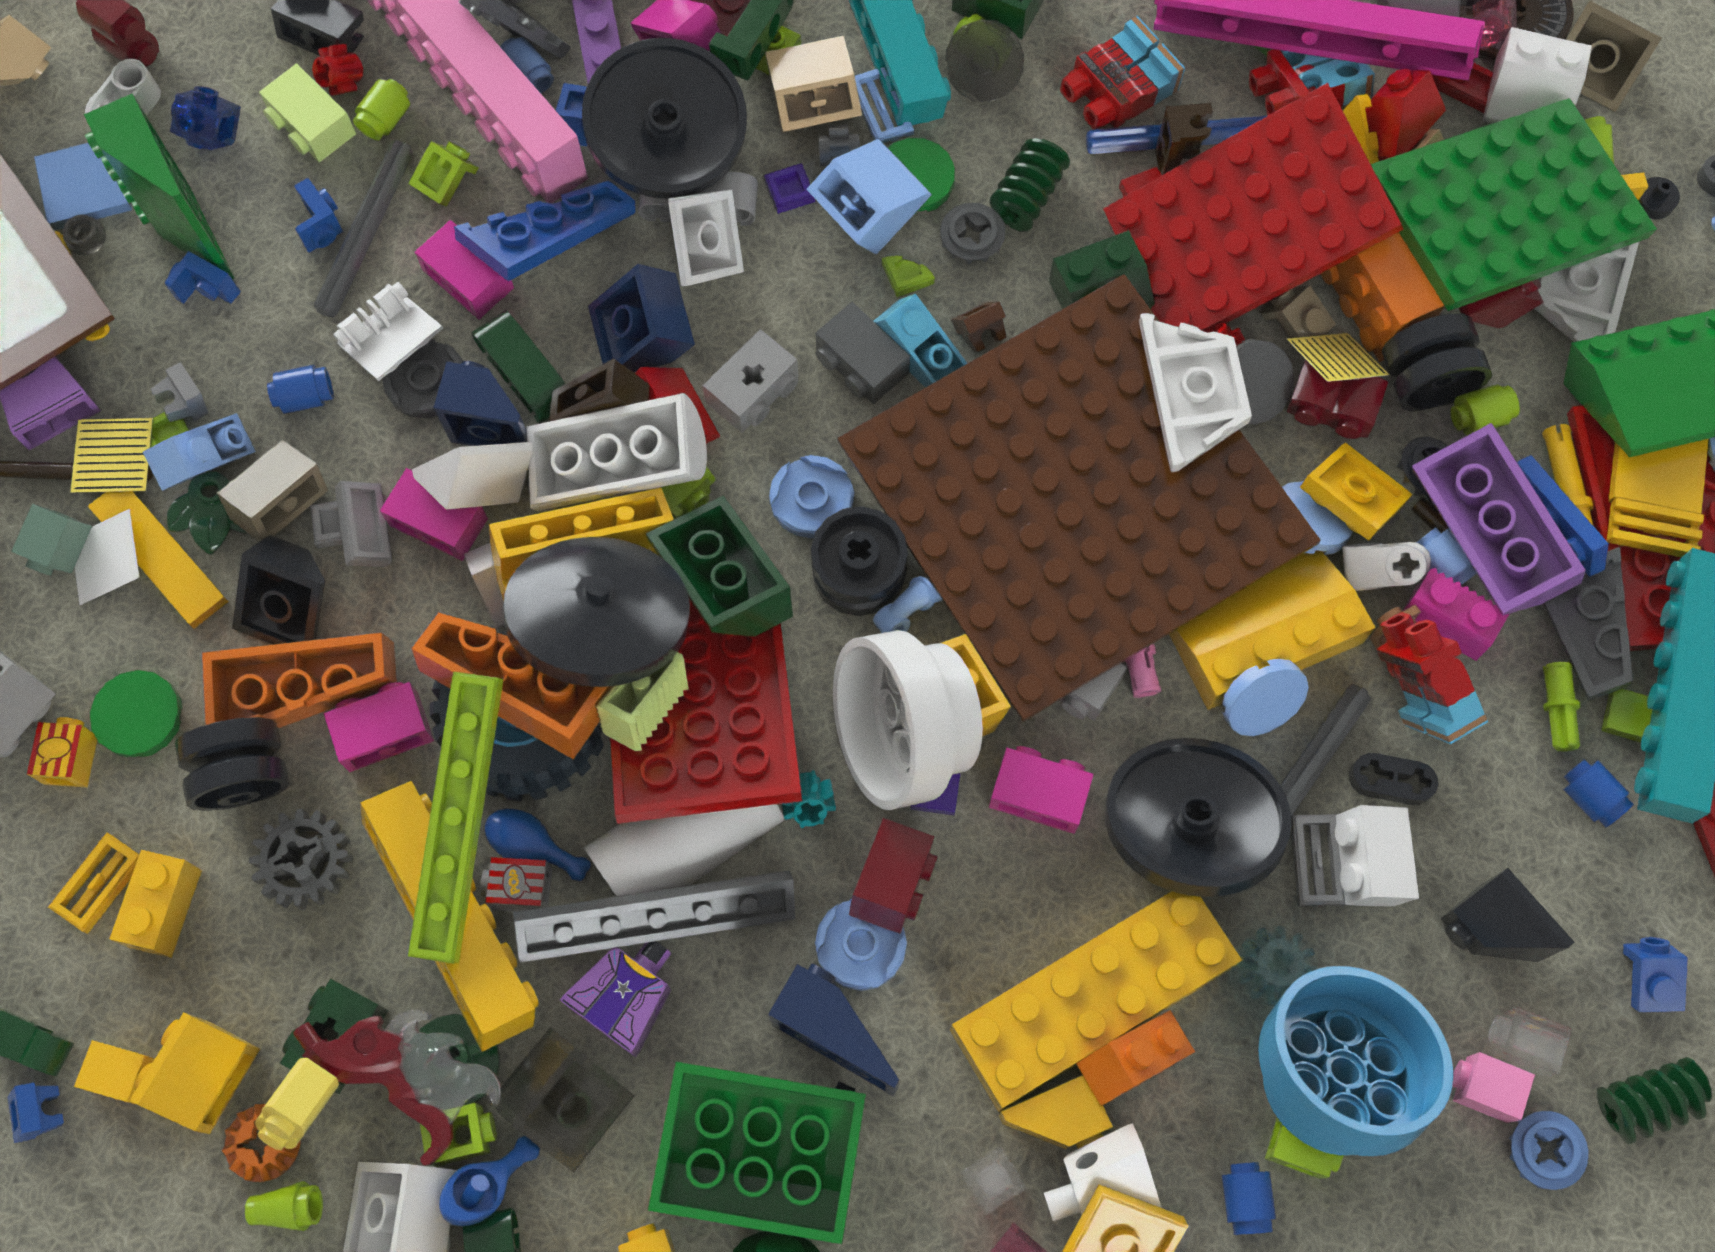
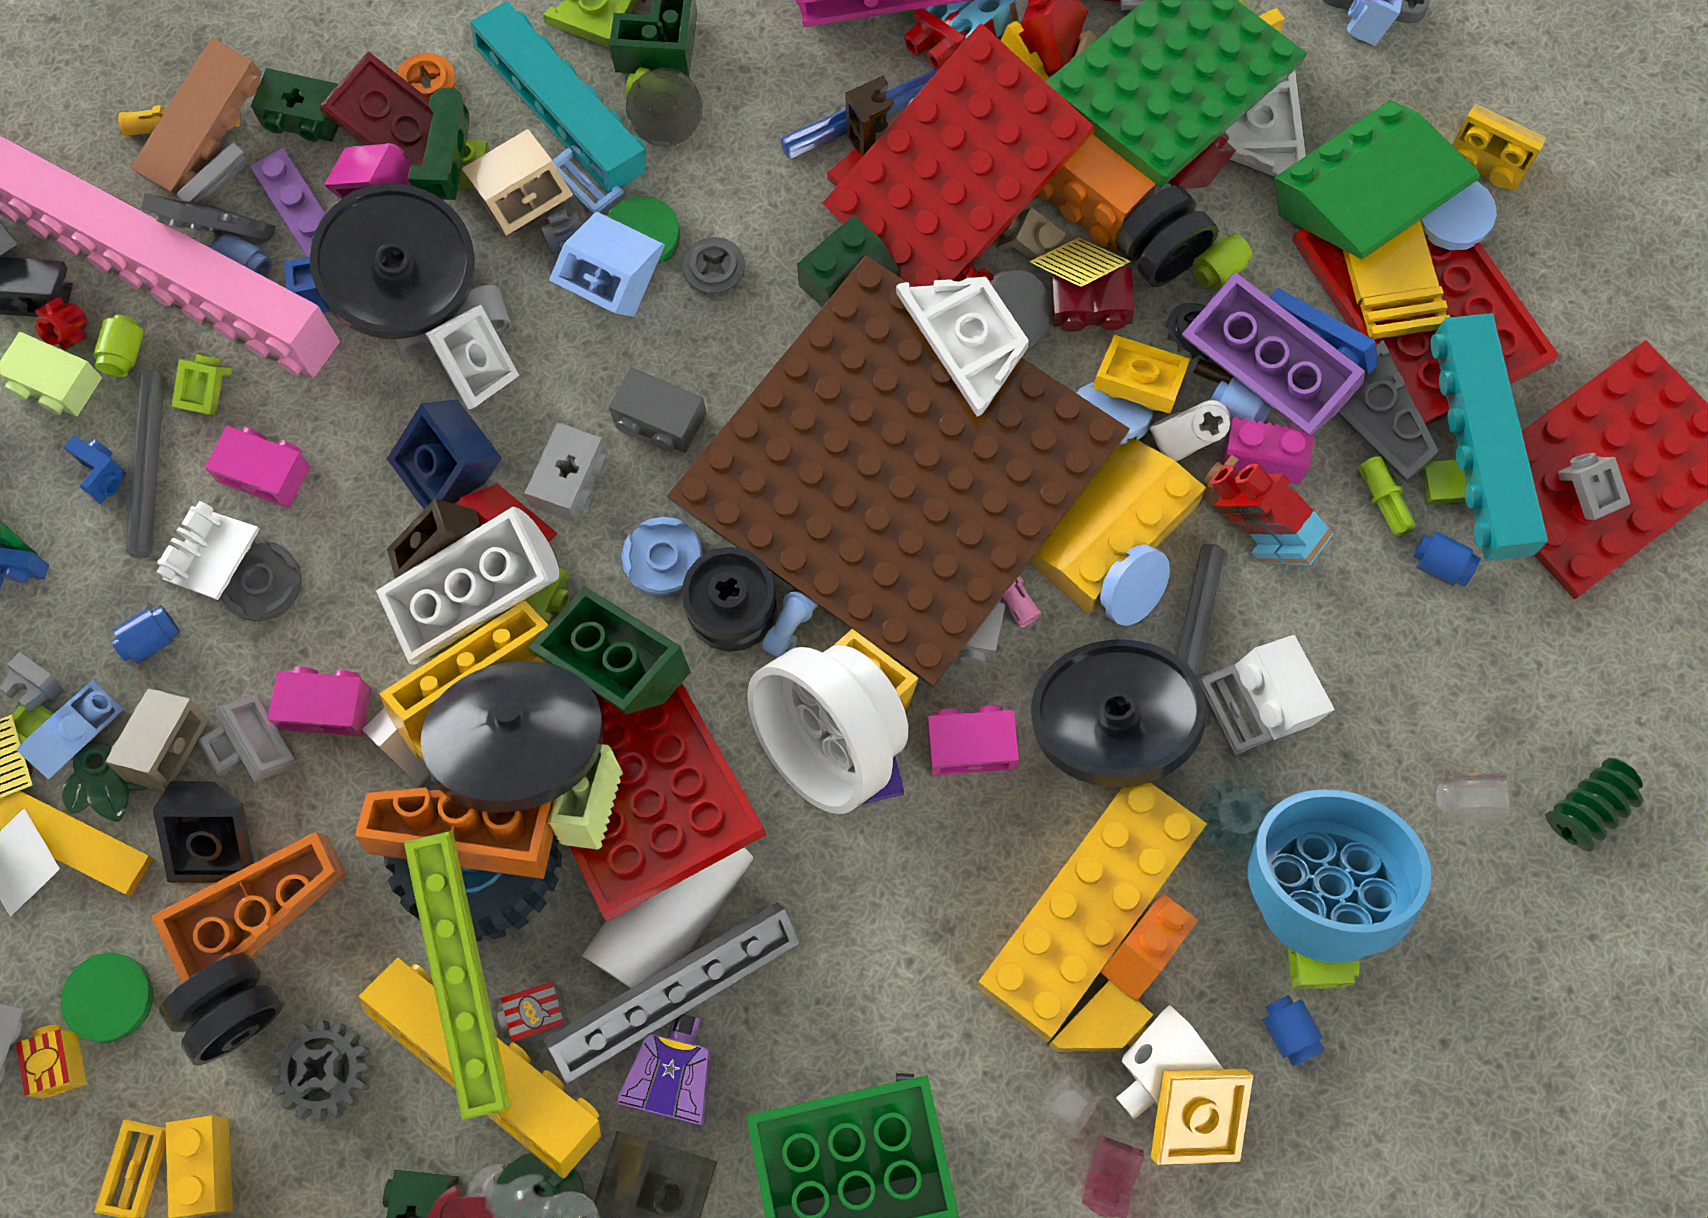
camera: 20 degrees left, 0 degrees up
(378, 726) = (344, 918): dark pink brick -> none
(476, 407) = (324, 592): dark blue slope -> none
(476, 475) = (347, 653): white slope -> none
(519, 362) = (345, 534): dark green beam -> none
(523, 836) = (523, 967): blue piece -> none
(545, 229) = (319, 403): blue wing -> none
(789, 188) = (531, 284): dark purple tile -> none
(816, 801) = (778, 831): teal gear -> none
(822, 1019) = (864, 1024): dark blue slope -> none
(862, 962) = (864, 958): light blue tile -> none
(892, 876) = (872, 870): dark red brick -> none
(906, 275) = (668, 325): lime tile -> none
(922, 338) = (707, 377): medium azure slope -> none
(975, 321) = (748, 344): reddish brown tile -> none
(1029, 182) = (747, 203): dark green piece -> none
(1123, 76) = (793, 78): hips -> none
(1395, 769) = (1268, 605): black beam -> none
(1492, 1087) = (1460, 848): bright pink brick -> none
(1505, 922) = (1414, 701): black slope -> none
(1566, 467) = (1309, 286): yellow pin -> none
(1570, 1150) = (1543, 876): medium blue gear -> none
(1657, 975) = (1556, 697): blue bracket -> none
(1659, 198) = (1297, 24): black tile -> none

